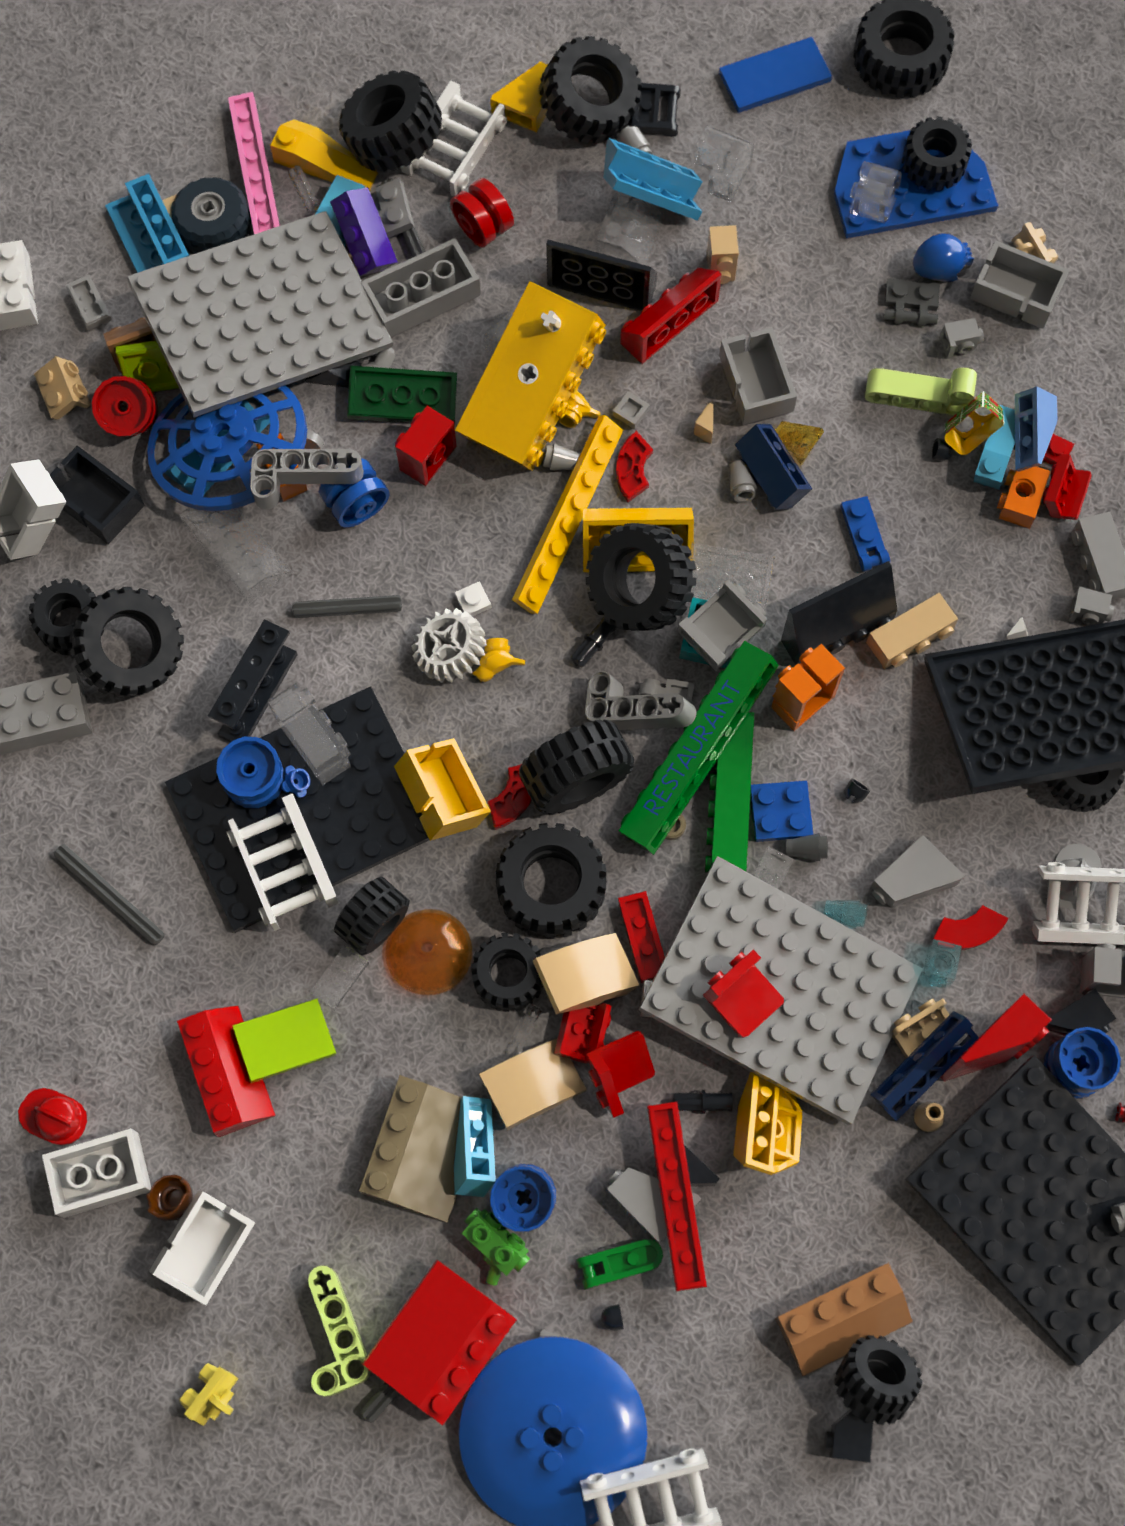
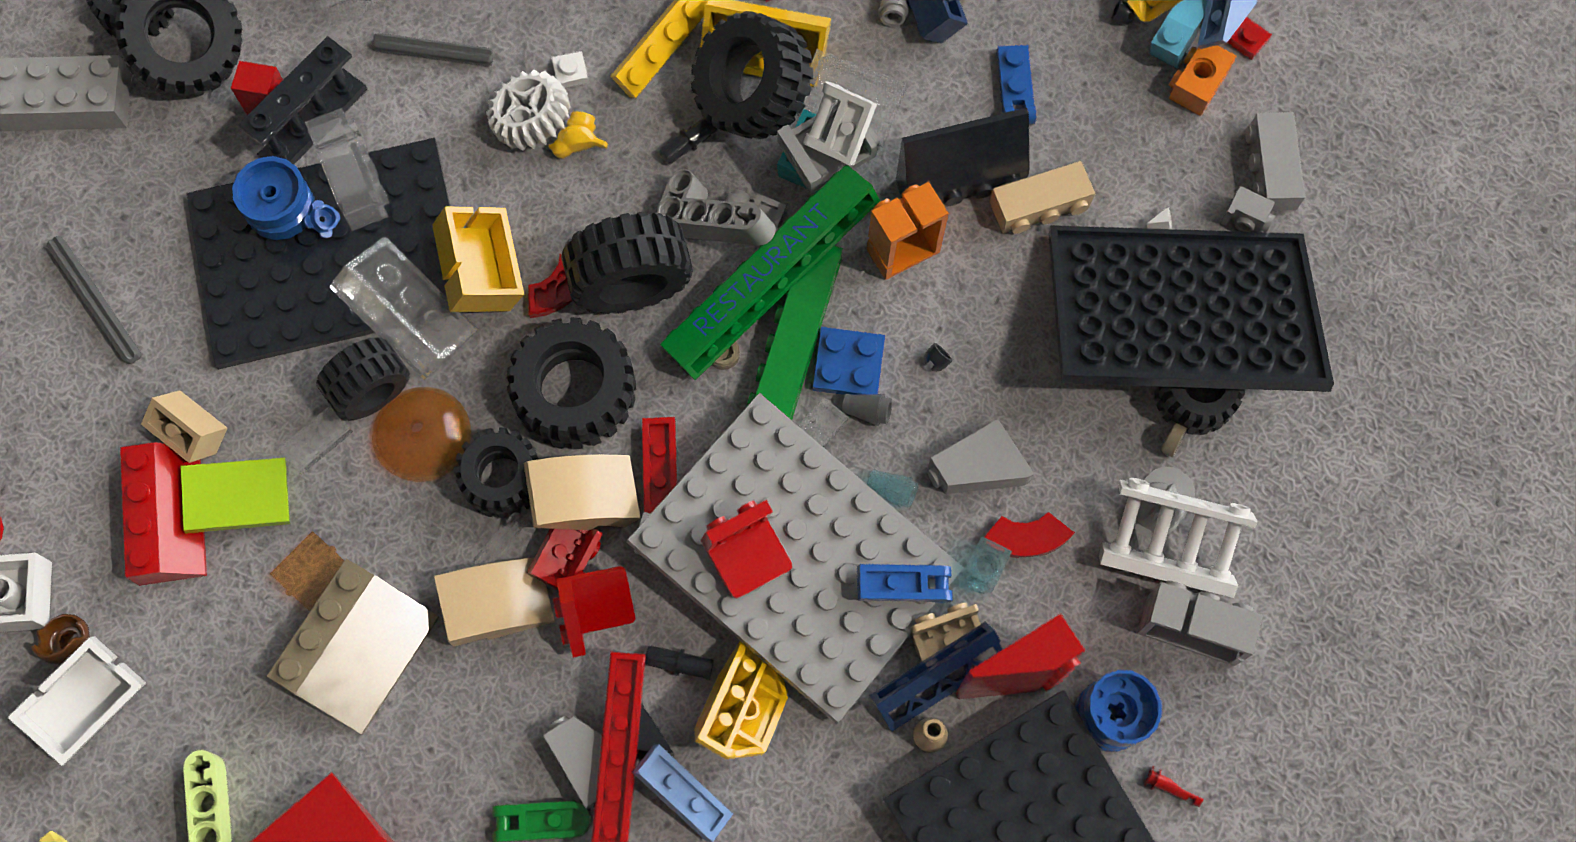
camera: 10 degrees right, 0 degrees up
(208, 676) = (253, 83): none -> red piece
(224, 990) = (184, 426): none -> tan brick
(310, 865) = (313, 311): white fence -> none
(365, 1092) = (308, 570): none -> clear orange piece
(389, 845) = (403, 307): none -> clear slope
(474, 1148) = (409, 657): medium azure slope -> none
(500, 1247) = (405, 769): bright green brick -> none
(505, 1197) = (428, 721): blue wheel -> none
(736, 1212) = (682, 793): none -> medium blue plate
(739, 609) = (847, 127): none -> white plate
(878, 993) = (903, 583): none -> blue plate
(1066, 489) = (1250, 79): red bracket -> none
(1073, 820) = (1173, 439): none -> dark tan tile
(1085, 1012) = (1137, 654): black slope -> none

